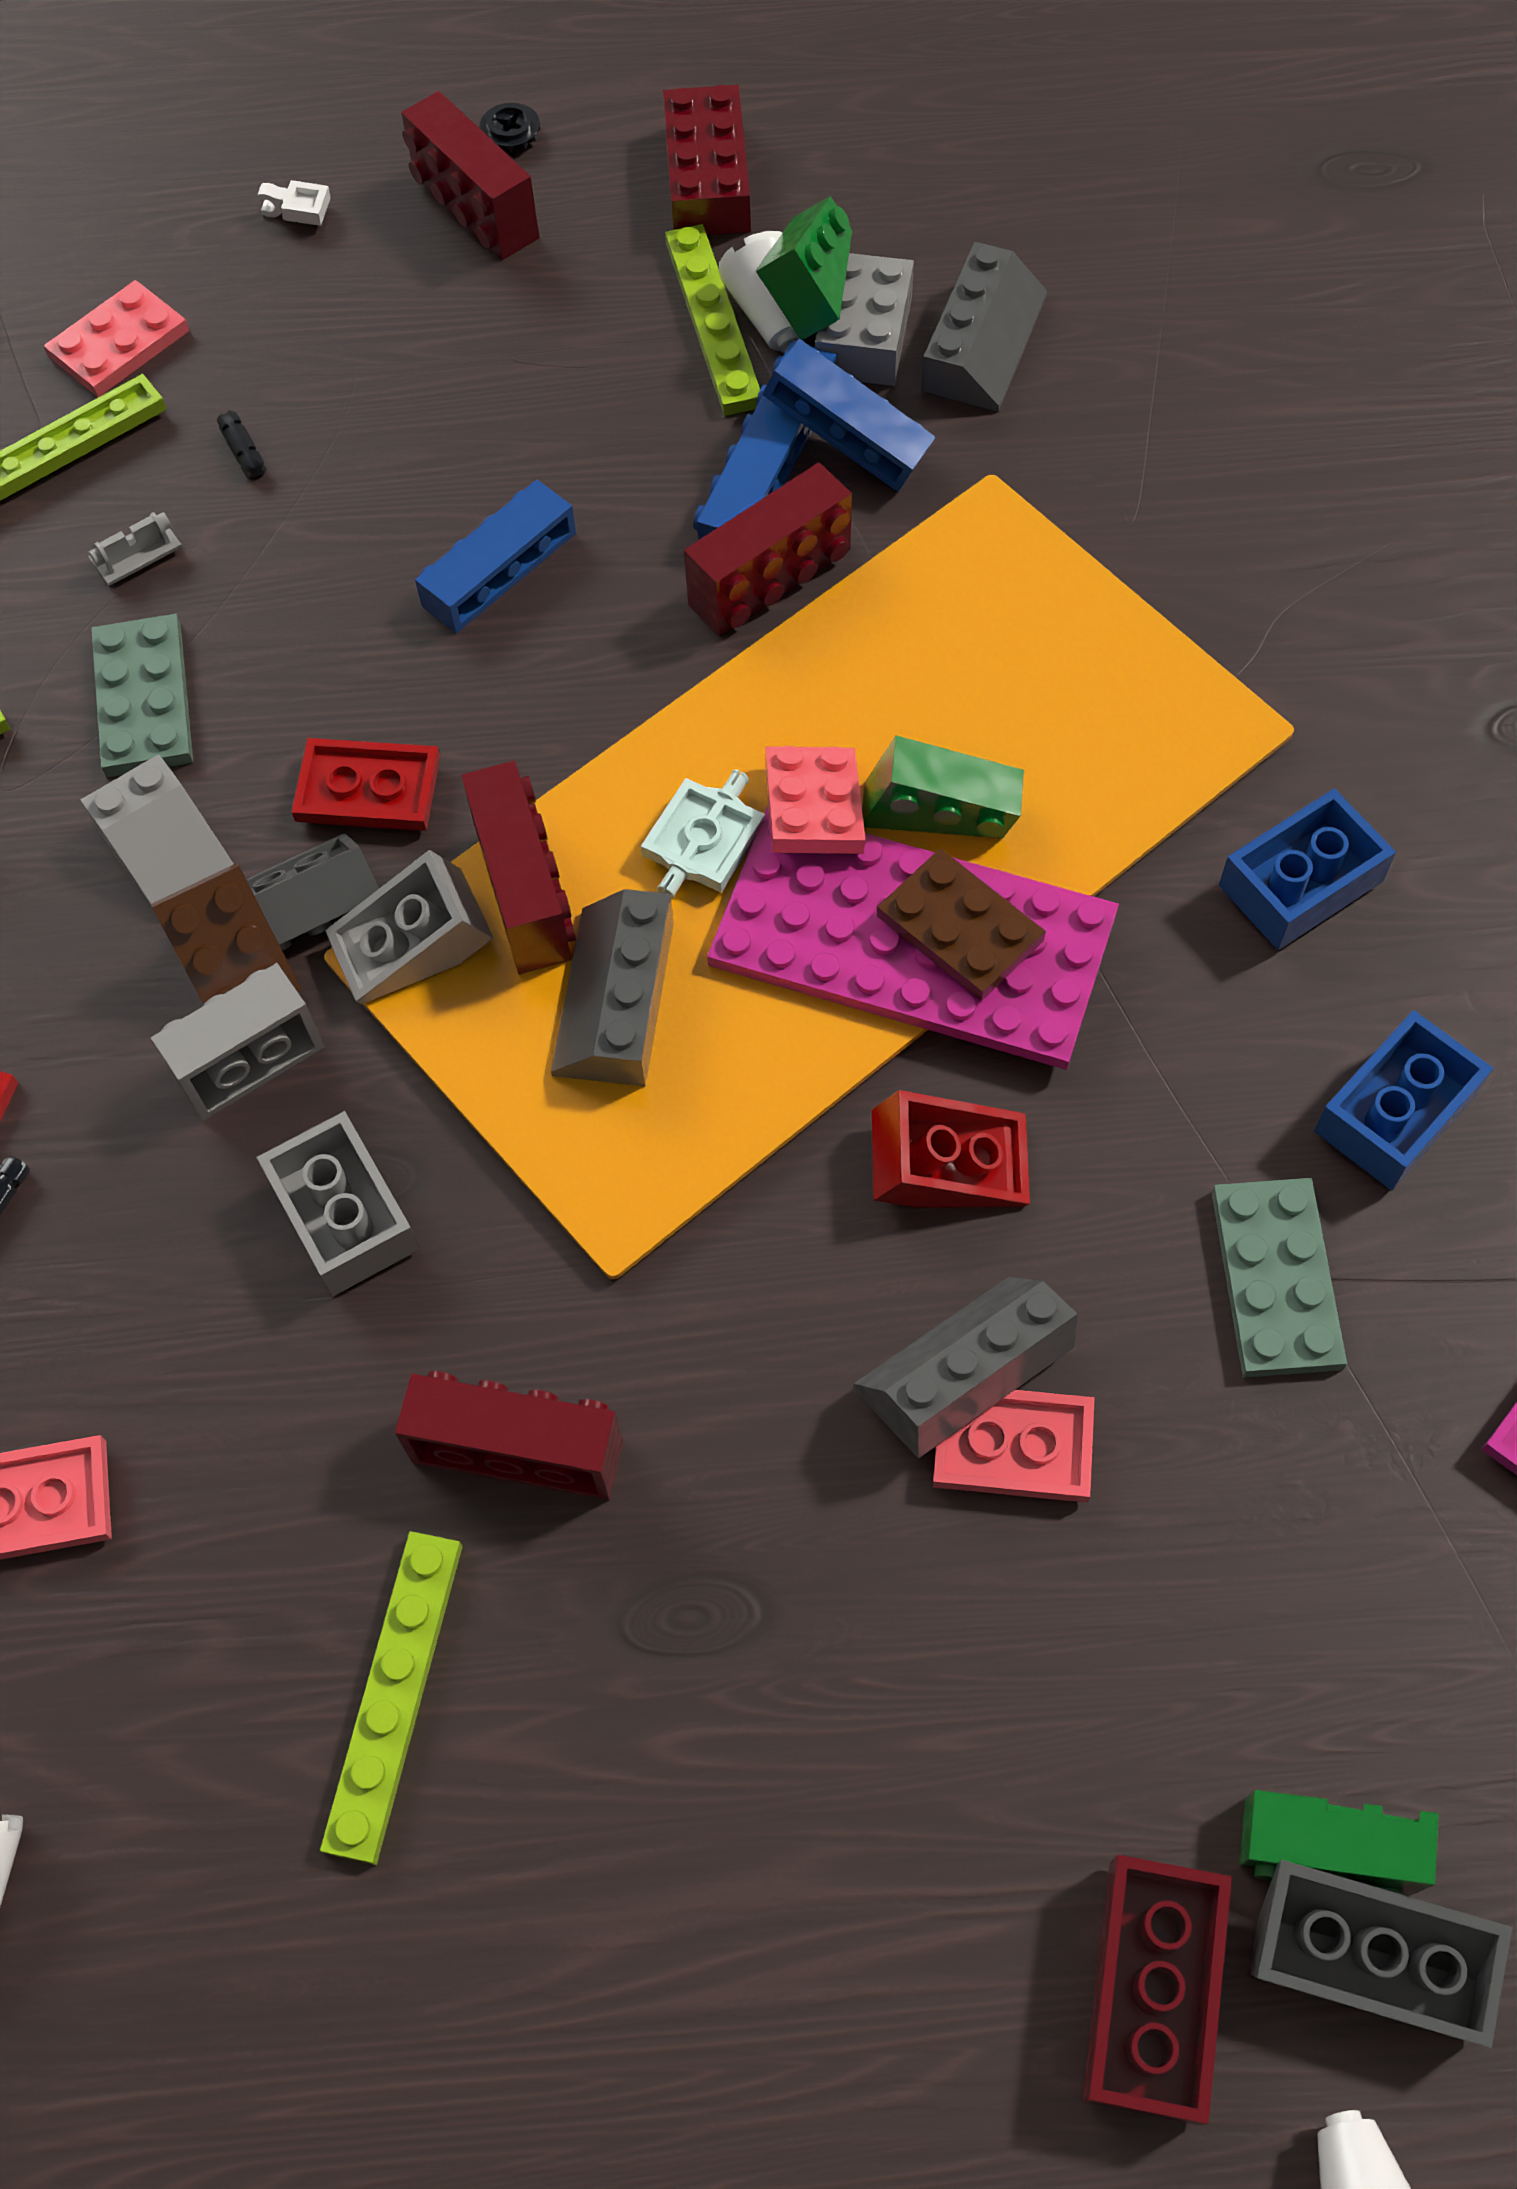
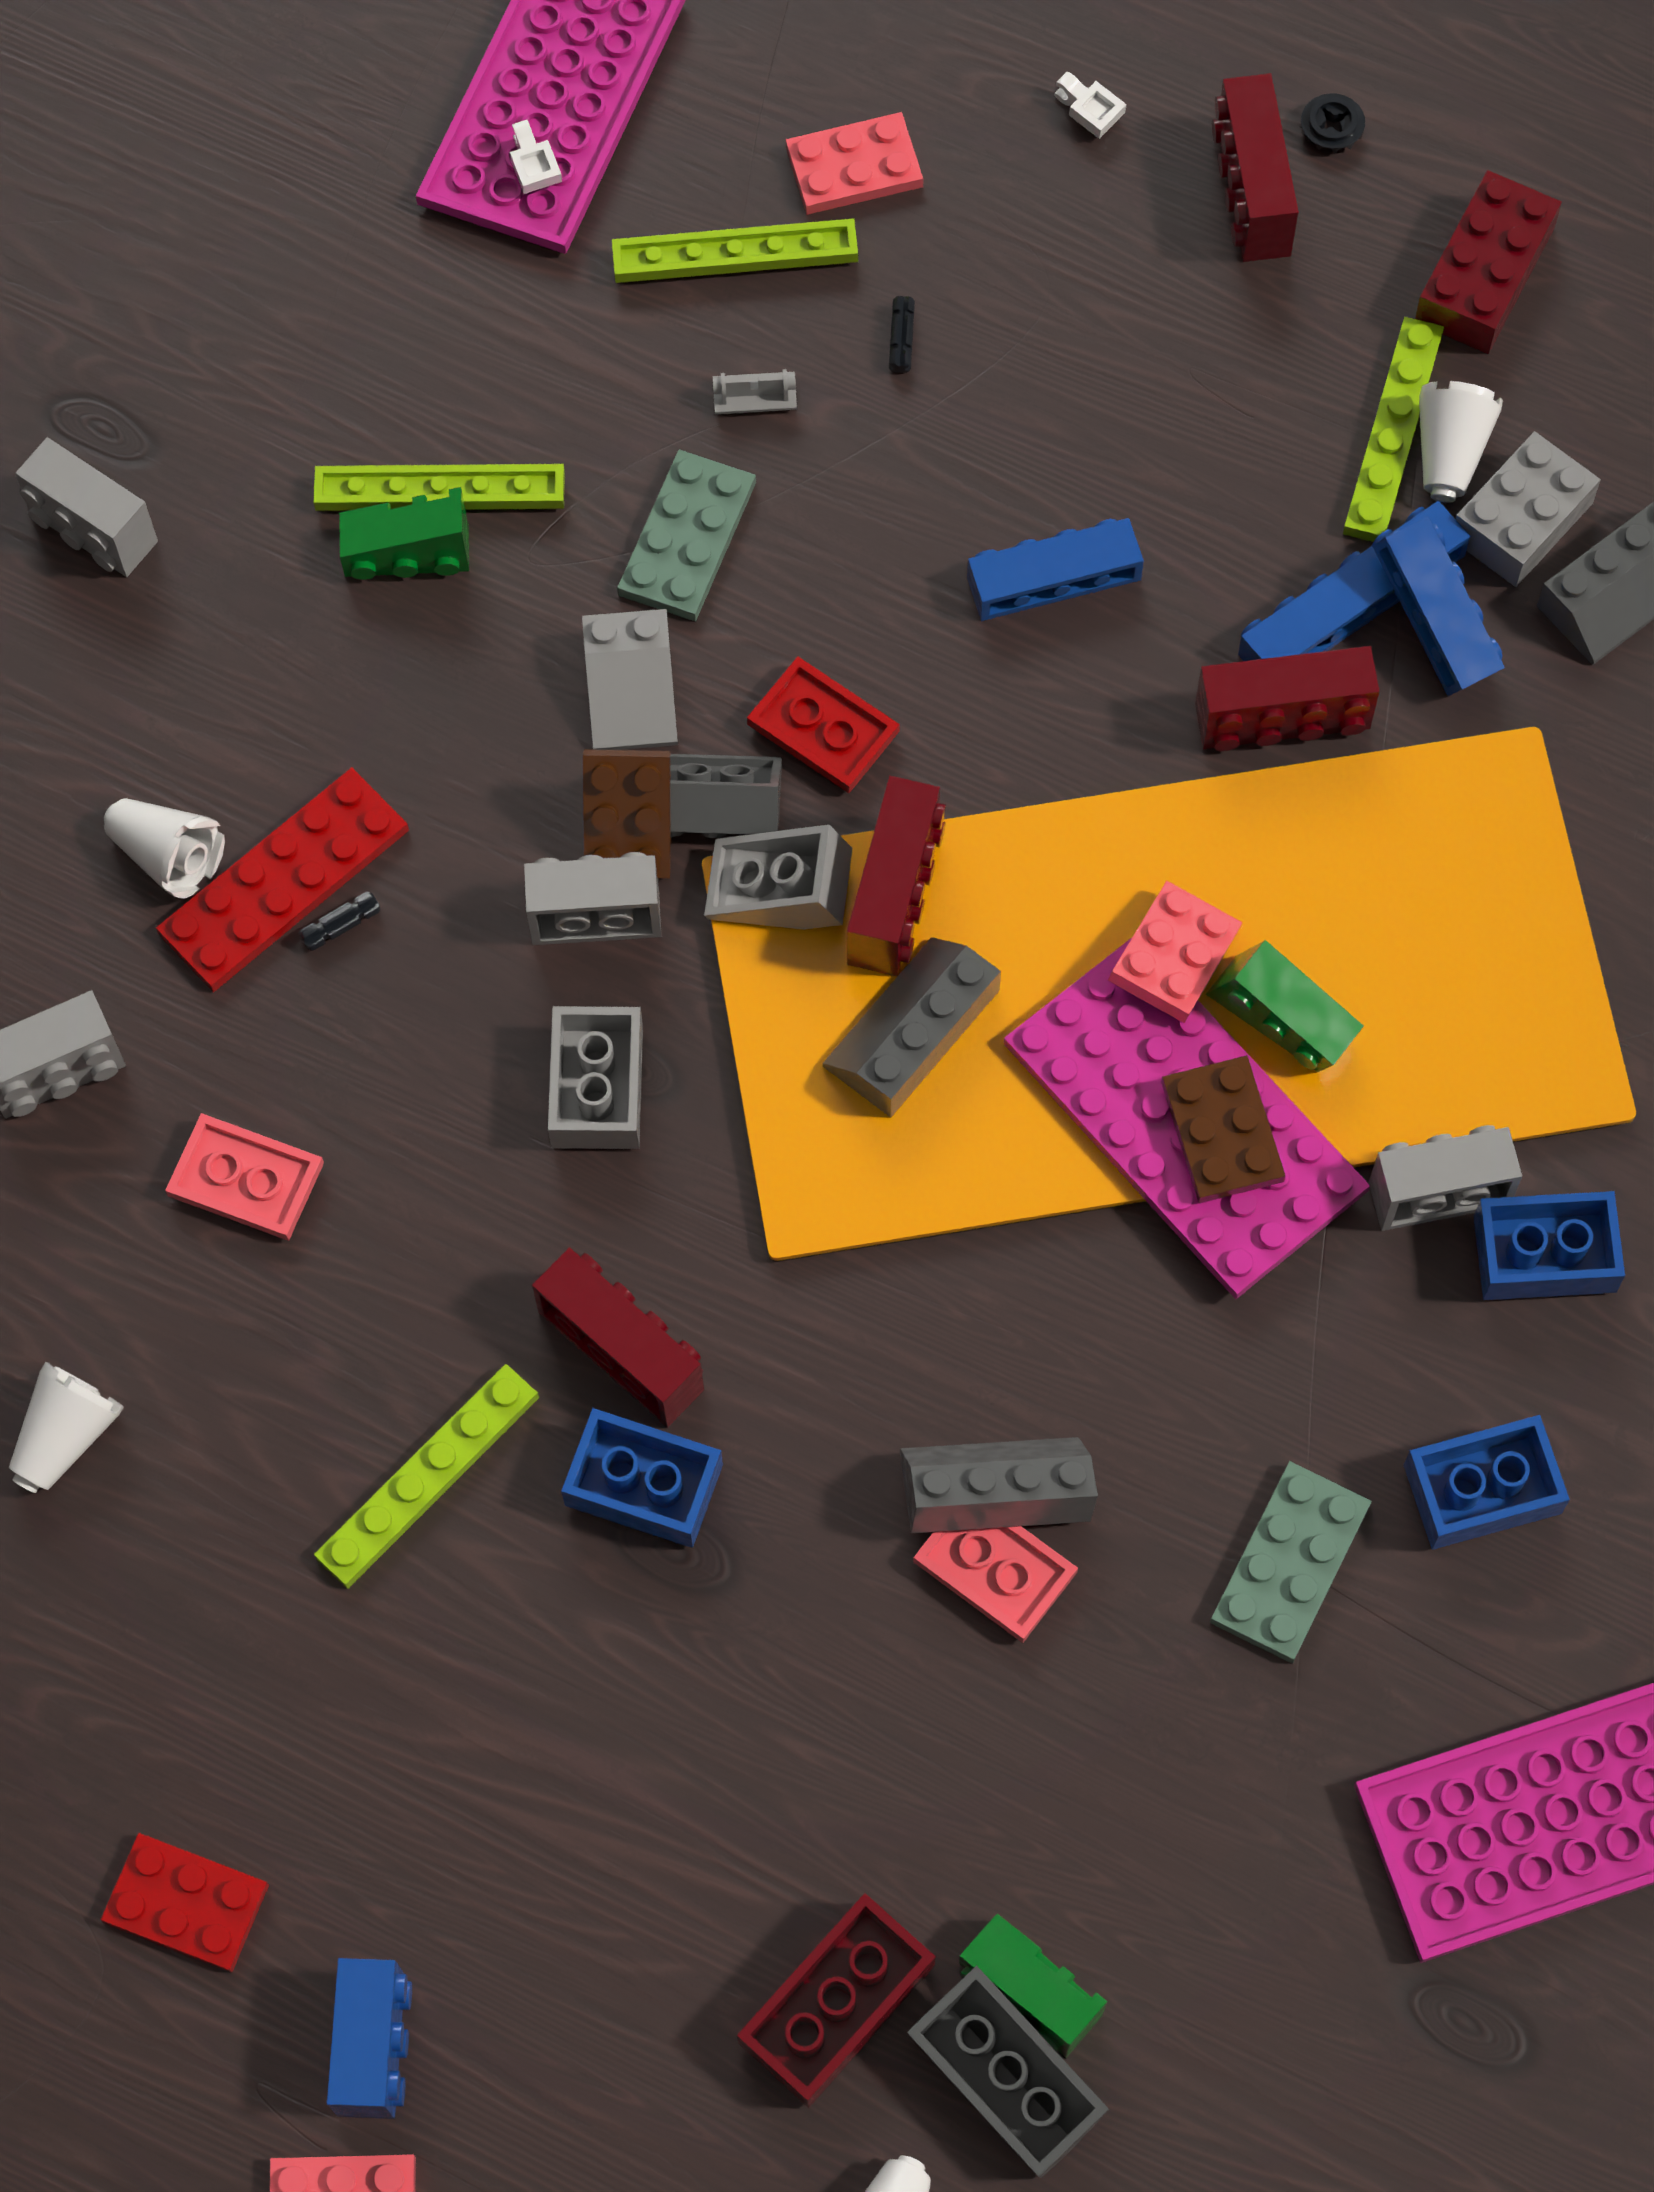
camera: 30 degrees right, 5 degrees up
(618, 1563) = (642, 1477): none -> blue brick
(703, 834) = (1067, 929): light aqua plate -> none
(810, 267) = (1493, 440): green wedge -> none
(948, 1153) = (1095, 1313): red slope -> none
(1179, 859) = (1443, 1176): none -> light grey brick

